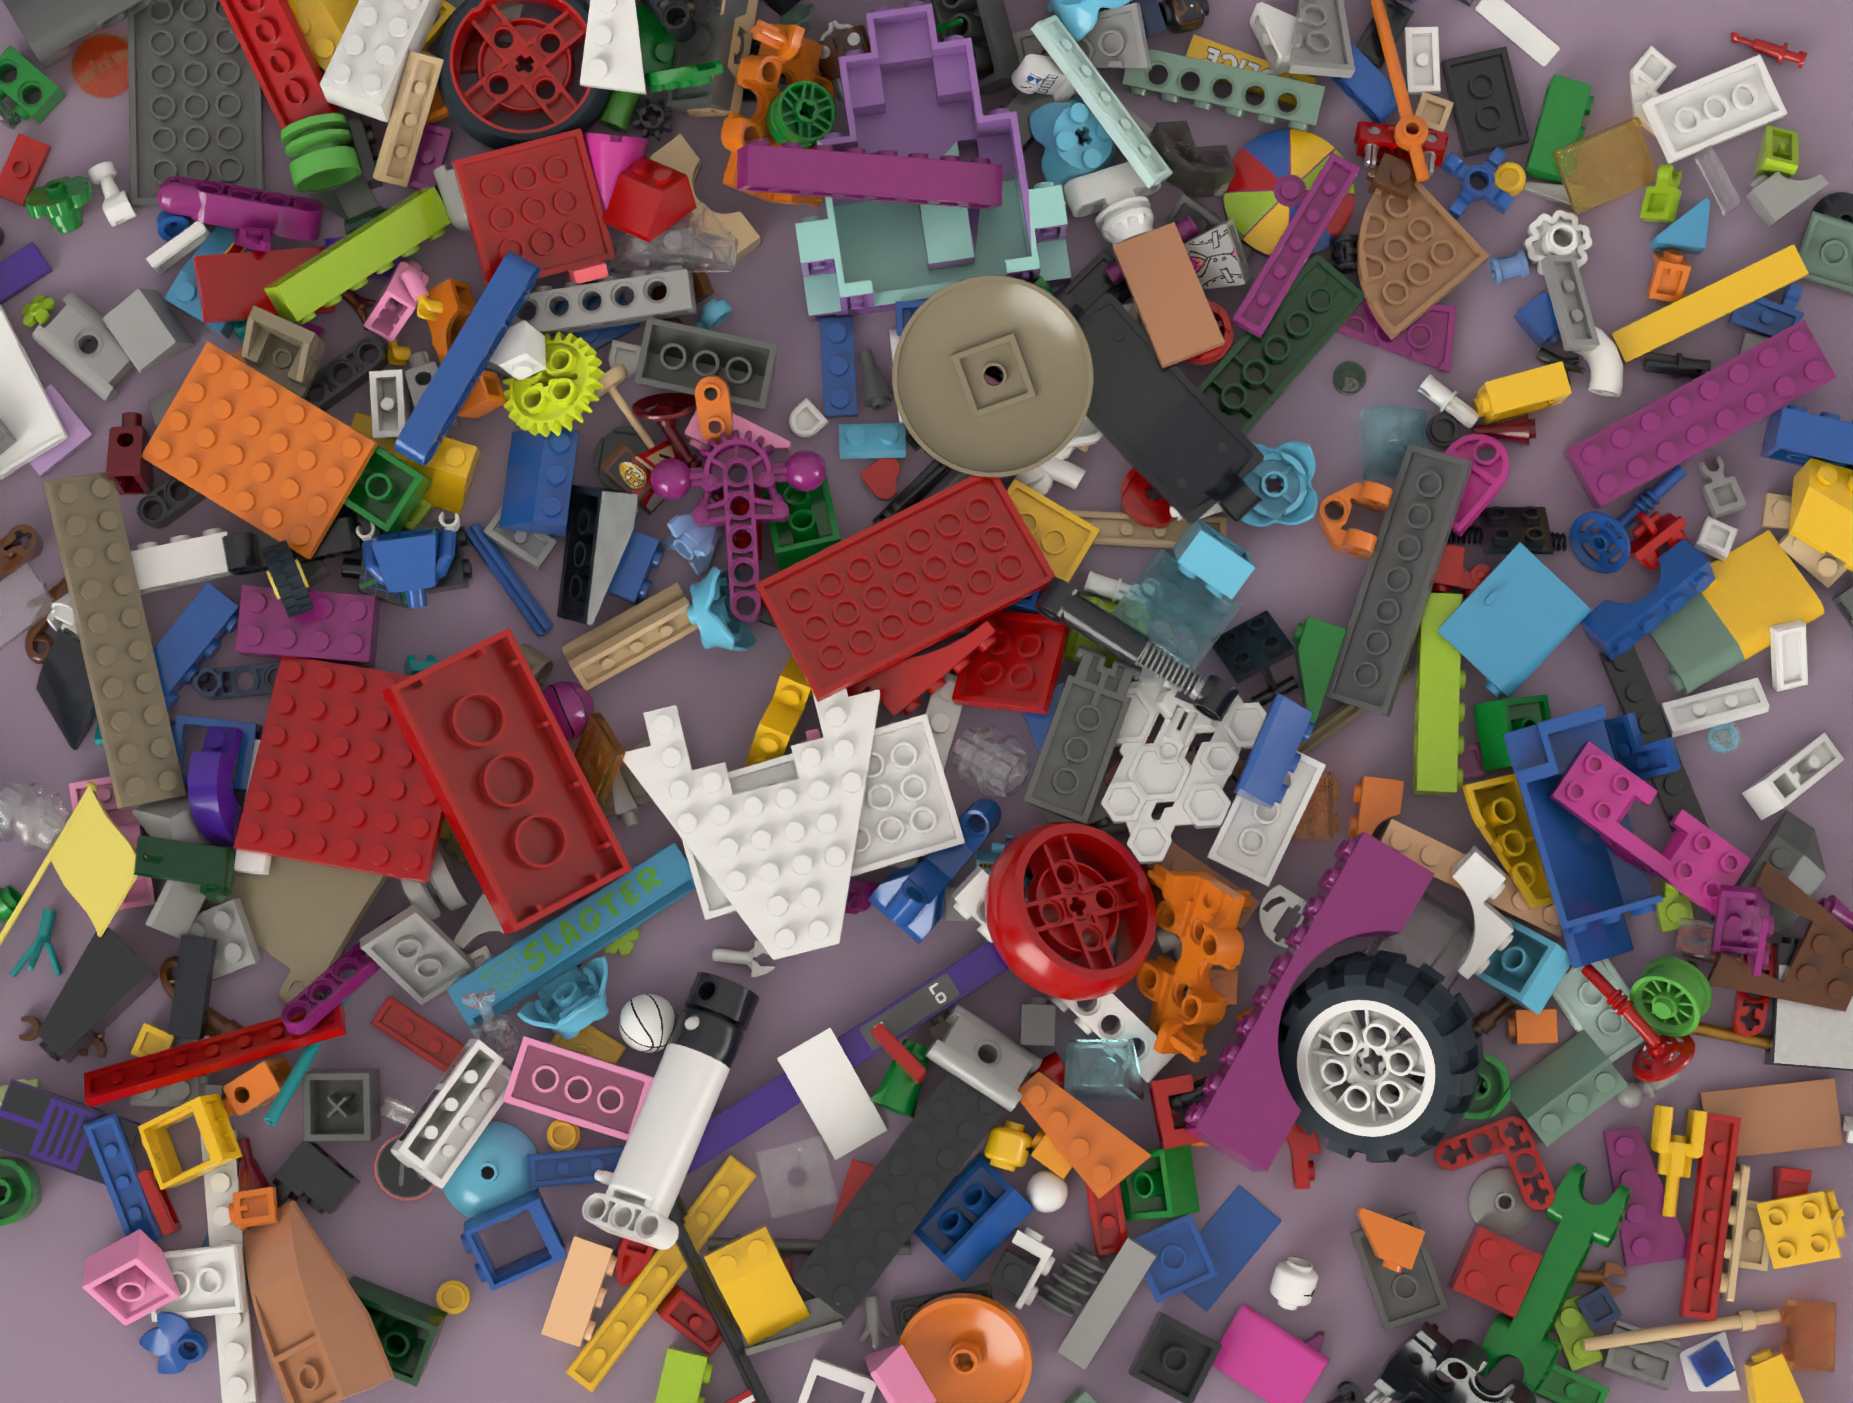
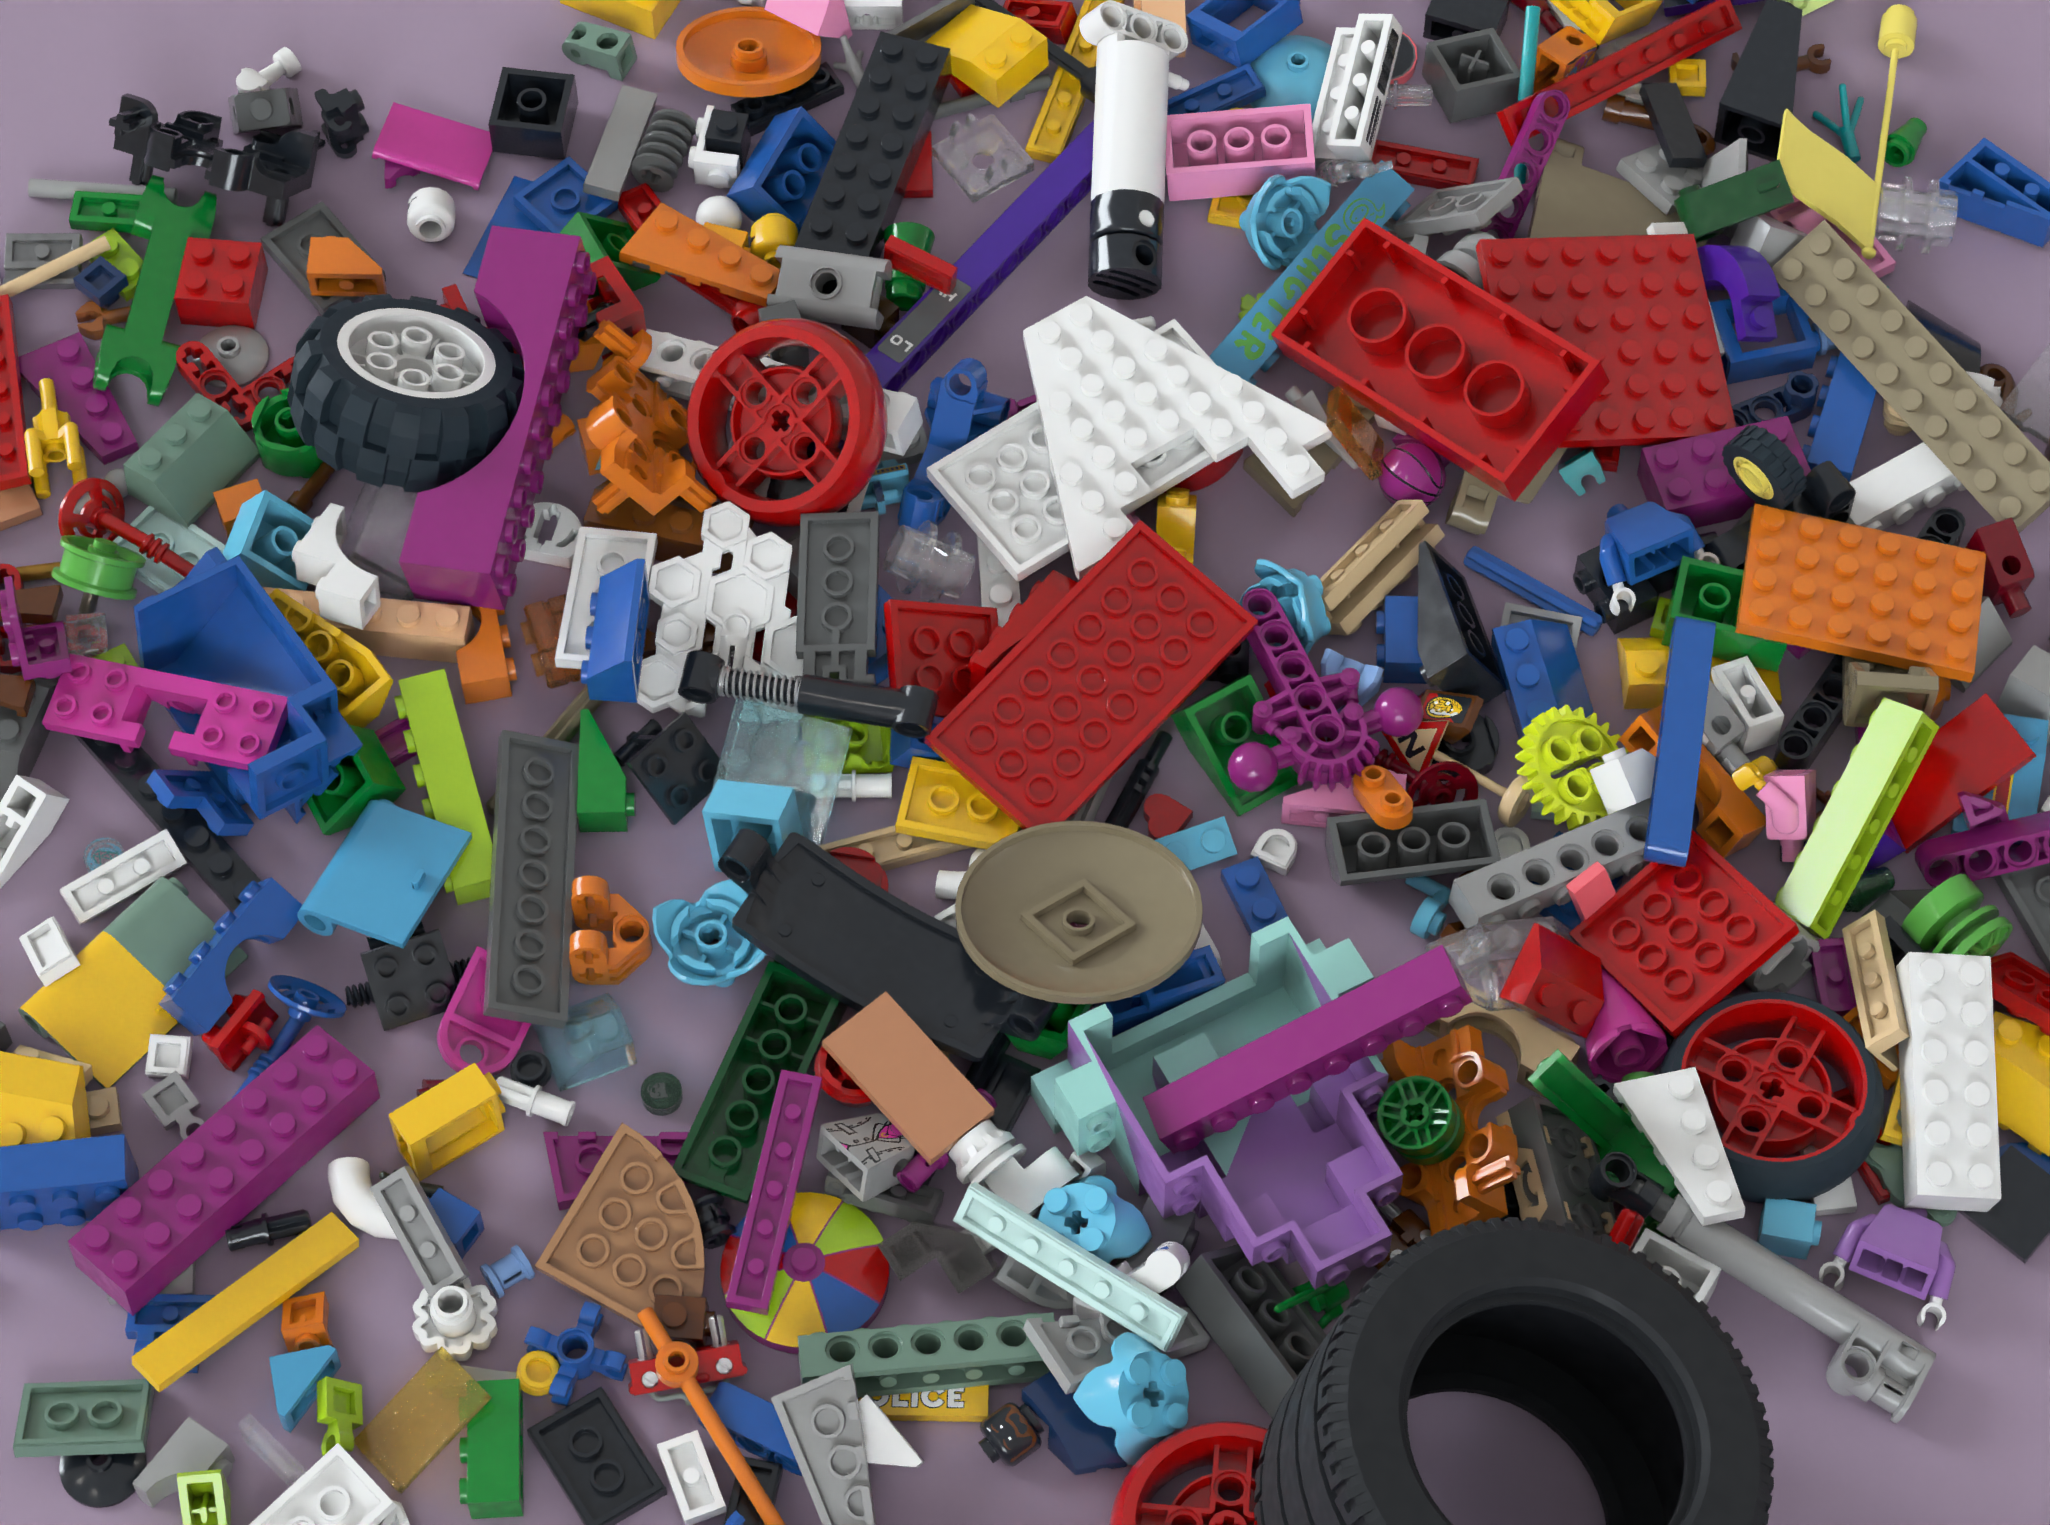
camera: 160 degrees right, 25 degrees down
(647, 1023) = (1194, 230): white piece -> none
(832, 1093) = (976, 226): white sticker -> none
(876, 390) = (1218, 910): dark grey cone -> none
(1102, 1070) = (697, 316): clear light blue slope -> none
(1434, 111) = (657, 1418): tan plate -> none
(1453, 575) = (465, 915): red brick -> none

